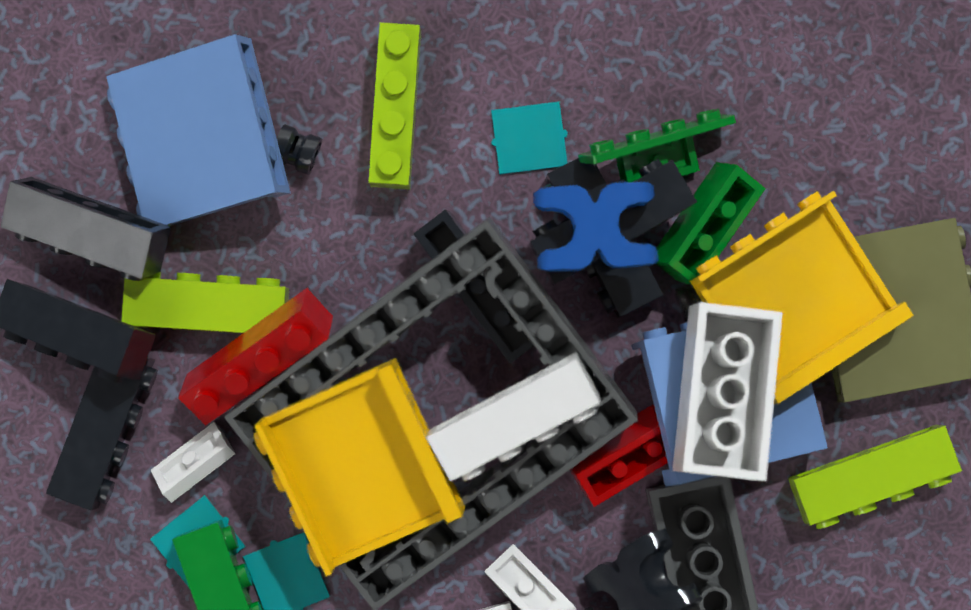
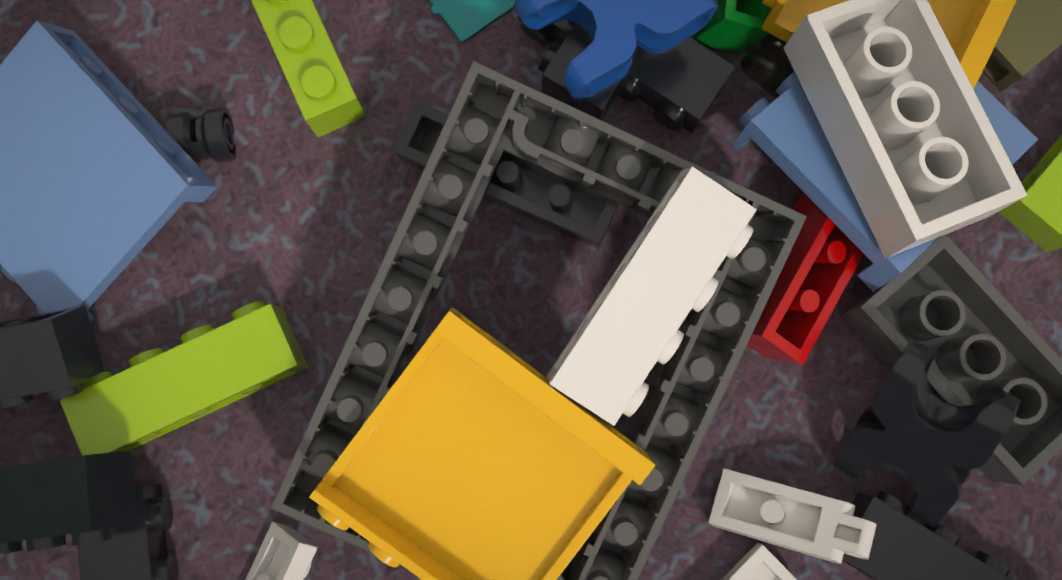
camera: 25 degrees left, 5 degrees down
(256, 357) = (276, 409): red brick -> none

